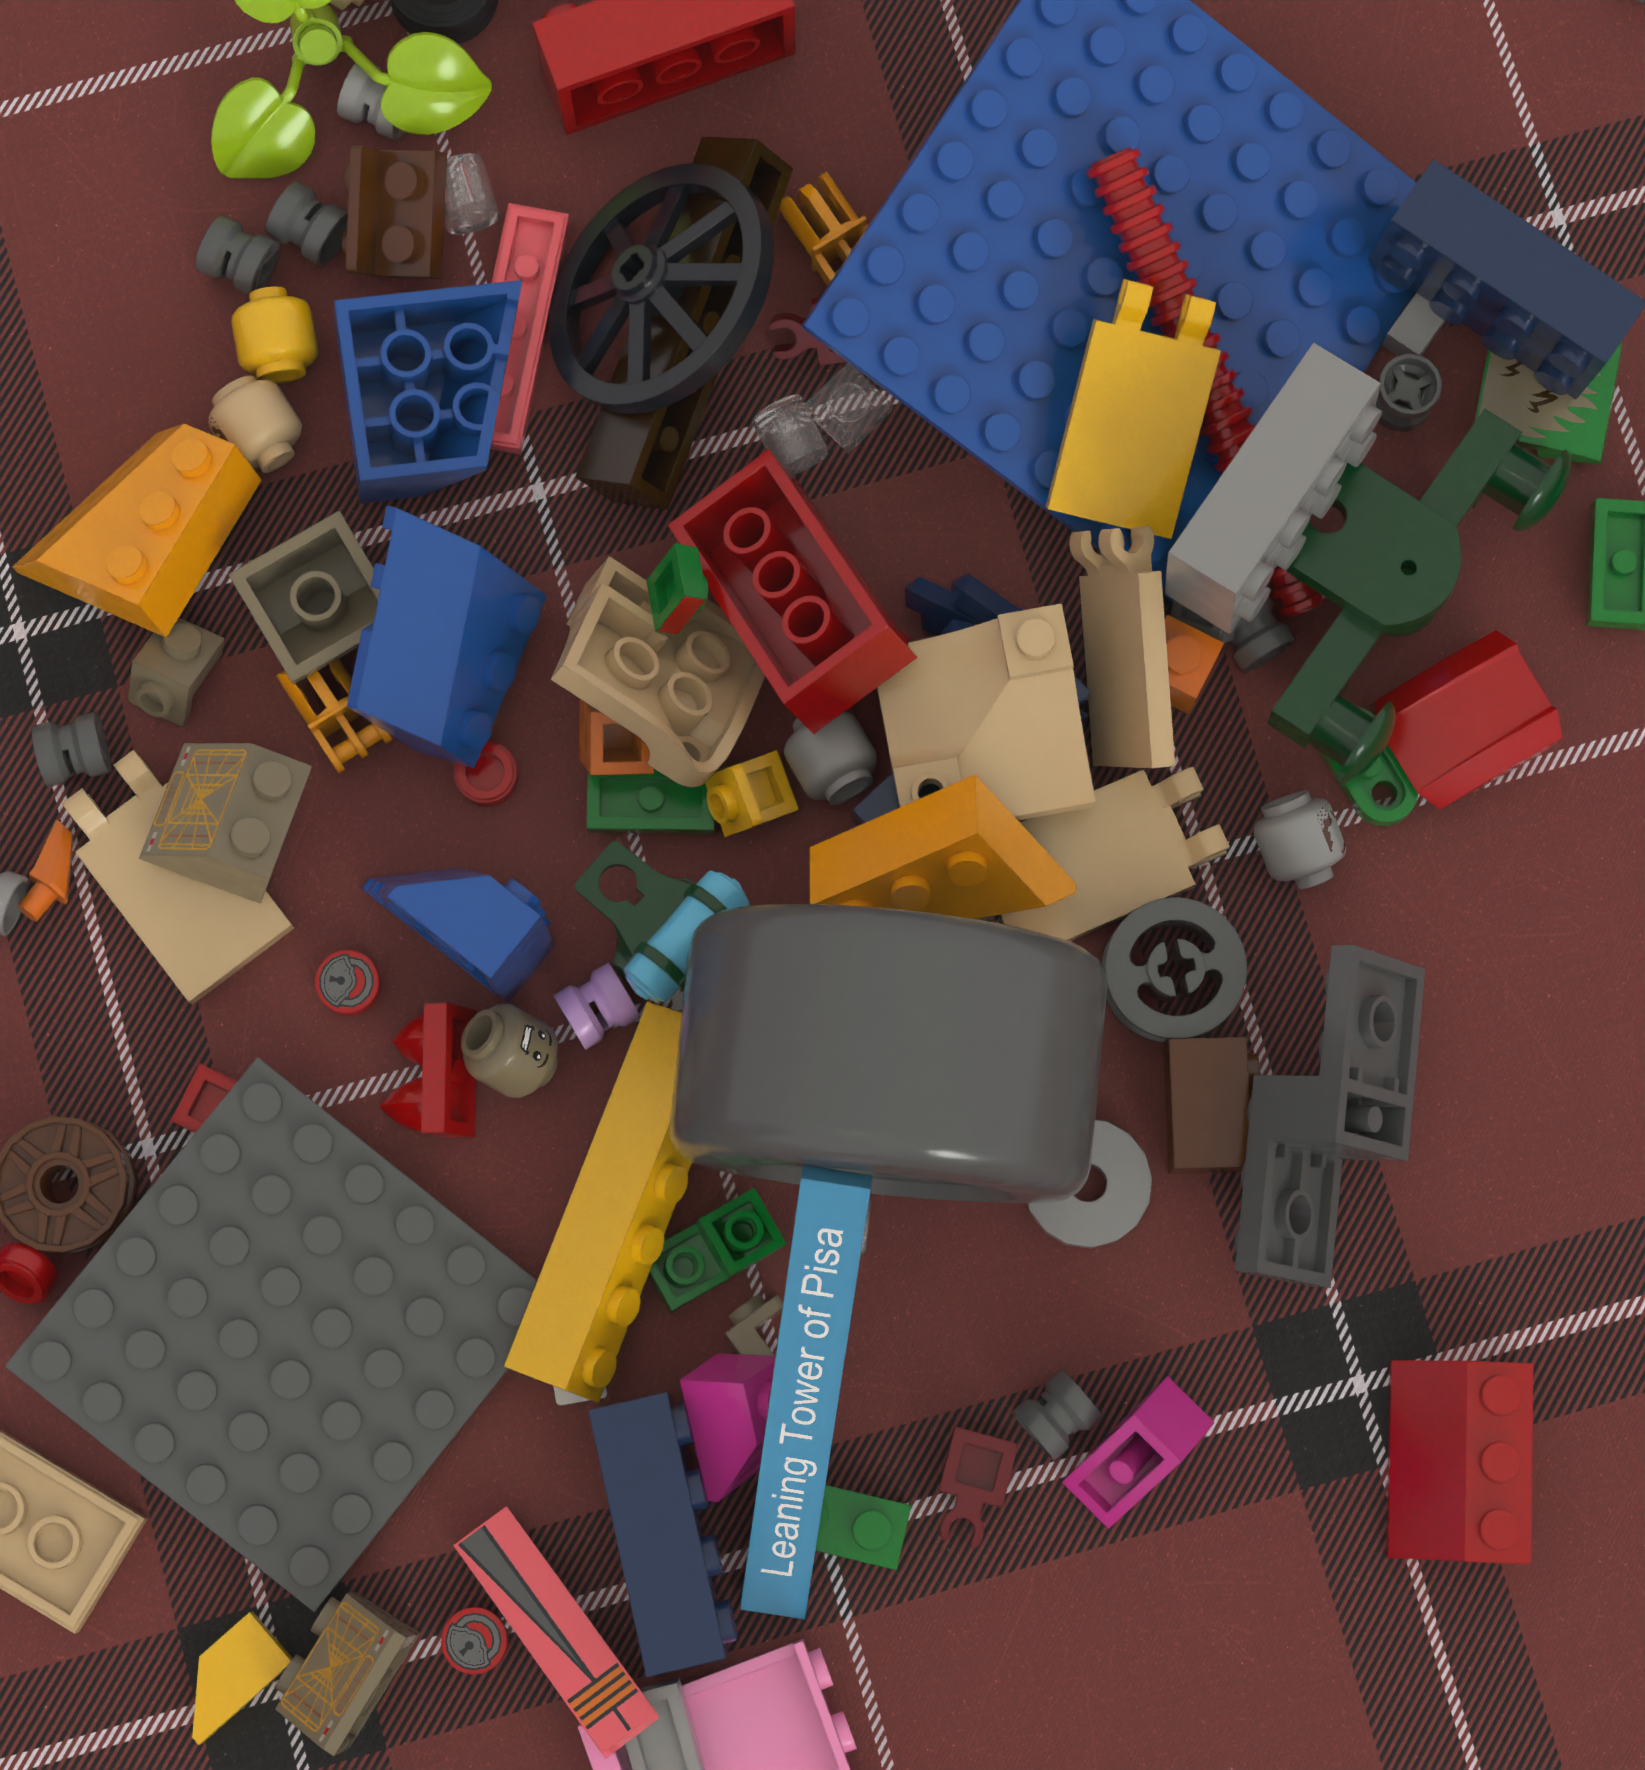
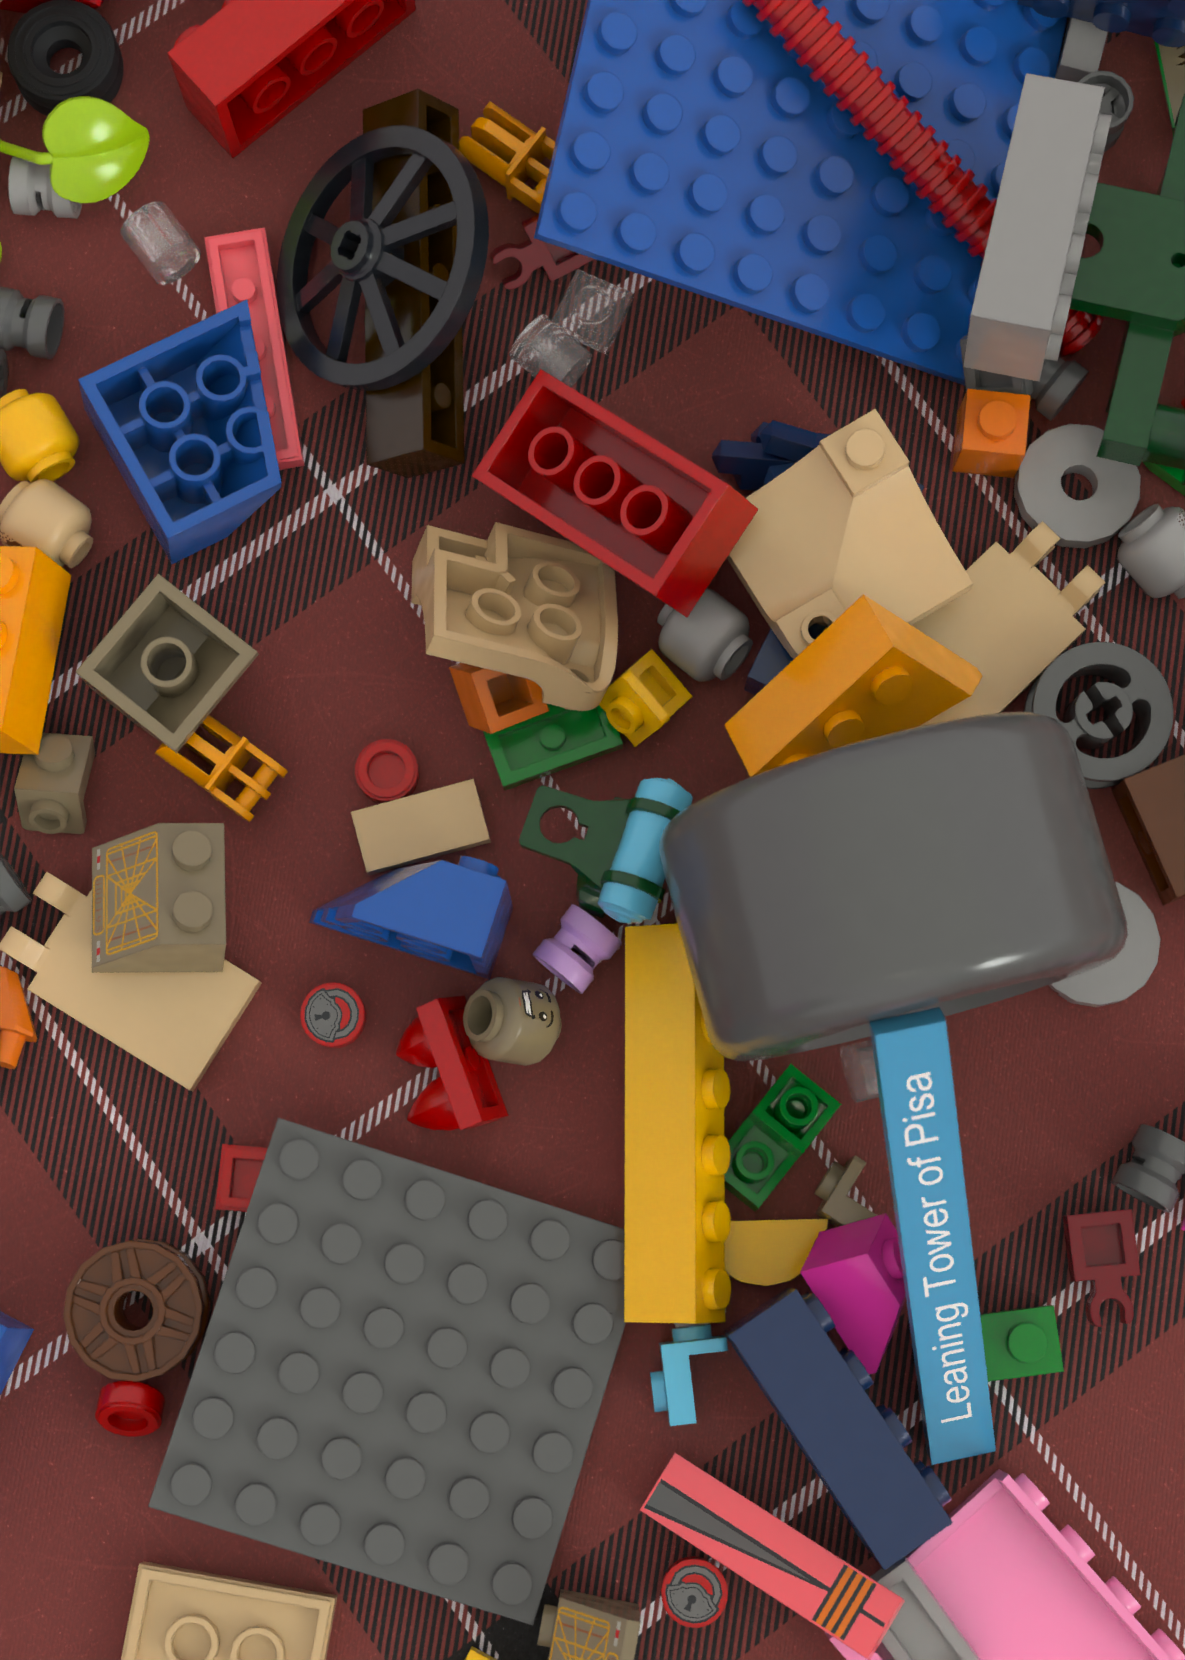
camera: 20 degrees left, 0 degrees up
(395, 213) = (103, 282): reddish brown bracket -> none
(441, 640) = (301, 659): blue wedge -> none
(497, 837) = (420, 827): none -> tan tile
(528, 1443) = (673, 1385): none -> medium azure bracket
(665, 1352) = (770, 1249): none -> yellow tile
(677, 589) = (507, 529): green plate -> none
(1125, 650) = (945, 431): tan tile -> none
(1135, 416) = (874, 210): yellow tile -> none
(1220, 773) = (1042, 498): none -> light grey tile

